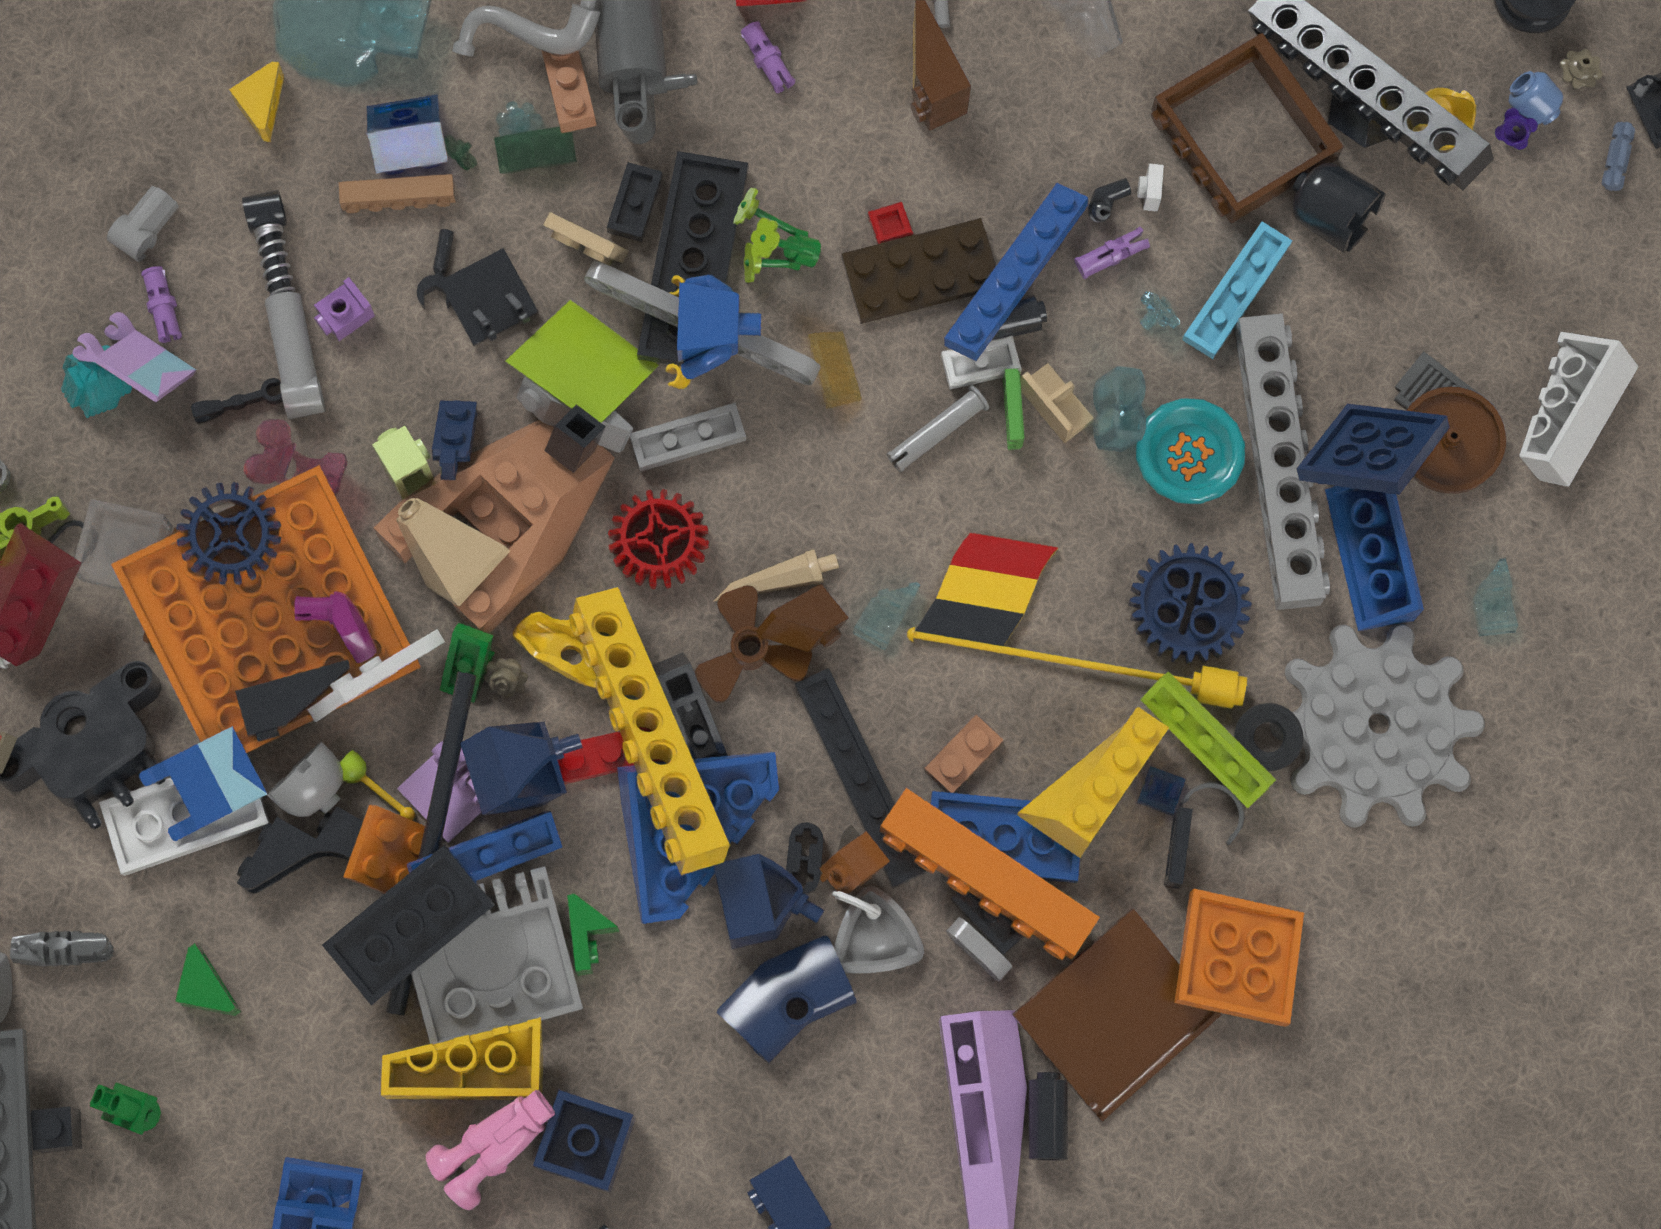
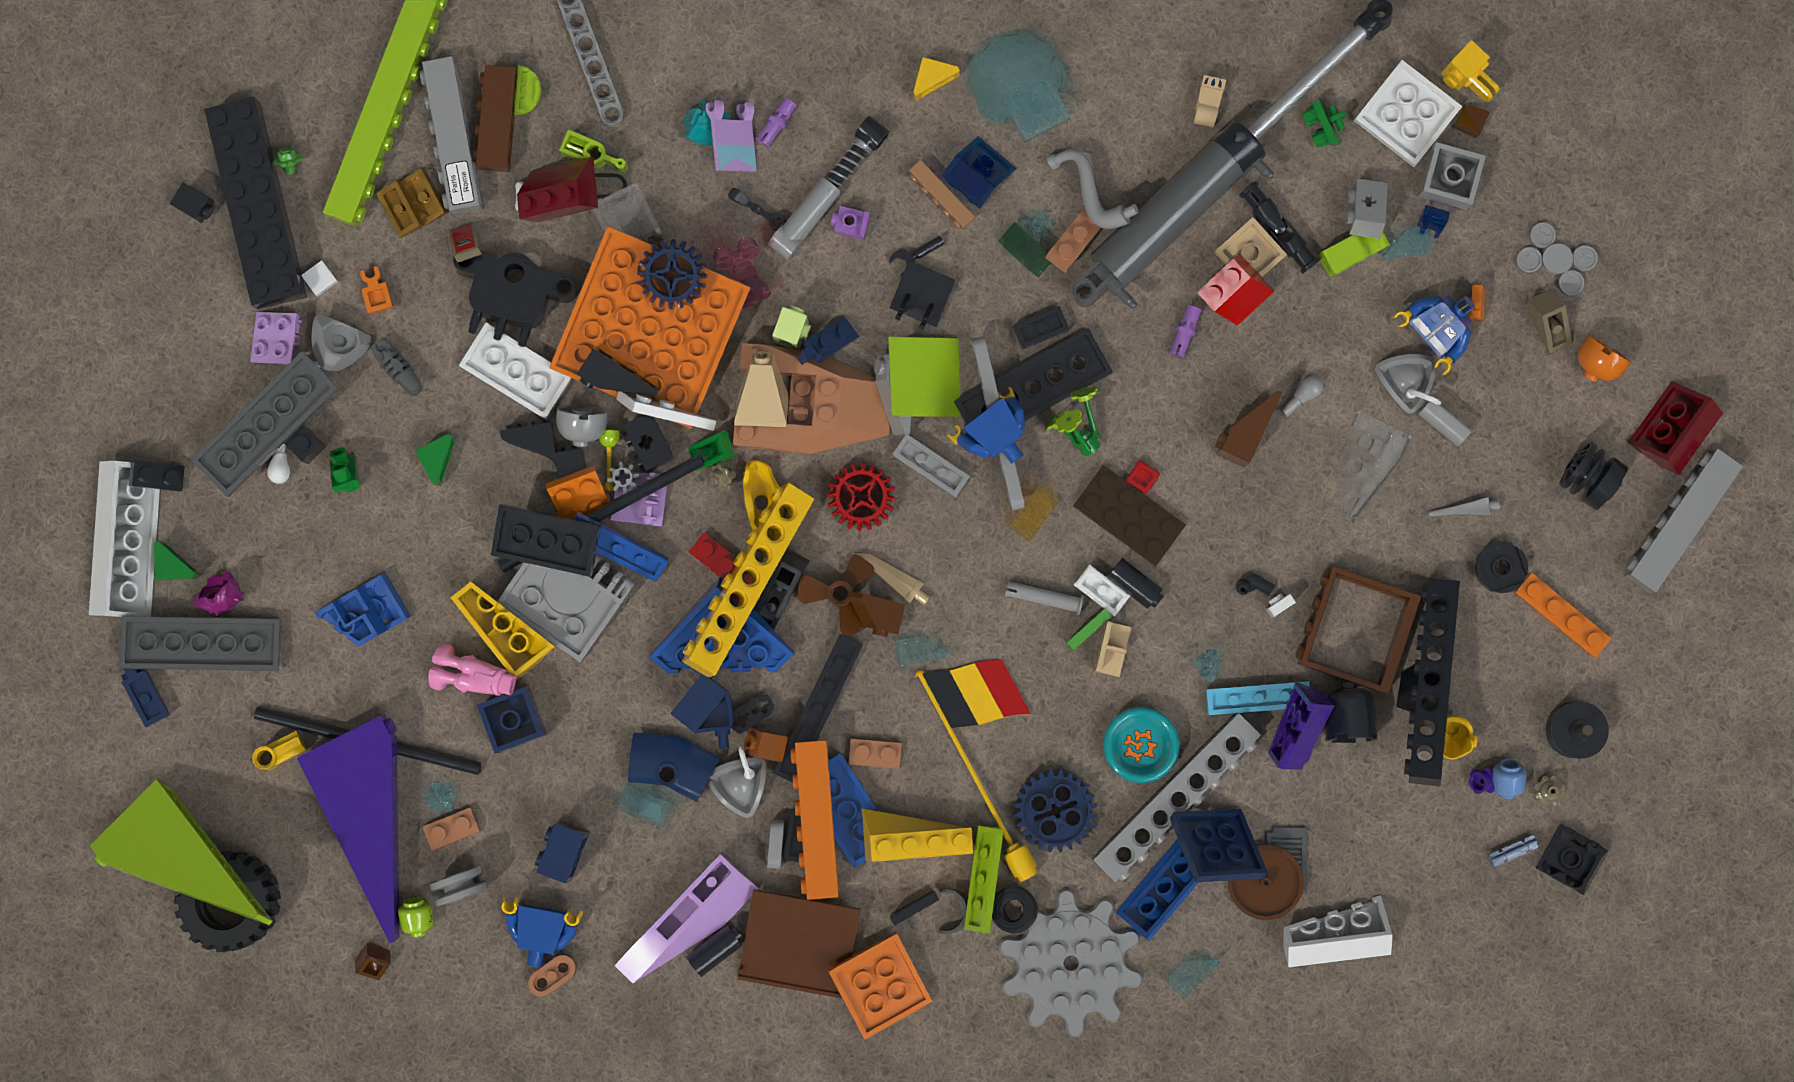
camera: 55 degrees right, 10 degrees up
(56, 1186) = (279, 469): none -> white piece
(140, 228) = (806, 74): light grey piece -> none
(211, 780) = (541, 372): blue flag -> none
(345, 618) = (680, 369): magenta arm -> none
(378, 713) = (658, 454): none -> black brick
(411, 774) = (617, 474): none -> light grey gear
(459, 151) = (991, 210): clear green plant -> none
(516, 766) = (675, 525): dark blue piece -> none
(574, 236) = (996, 327): tan plate -> none
(574, 438) = (876, 409): black brick -> none
(586, 922) = (624, 625): green slope -> none
(812, 1066) = (644, 806): none -> clear light blue slope
(1016, 272) = (1167, 570): blue plate -> none
(1111, 253) = (1229, 615): medium lavender pin -> none
(1119, 409) = (1136, 685): clear light blue brick -> none
(1161, 790) = (939, 874): tile -> none
(1306, 263) = (1300, 727): none -> dark purple wedge

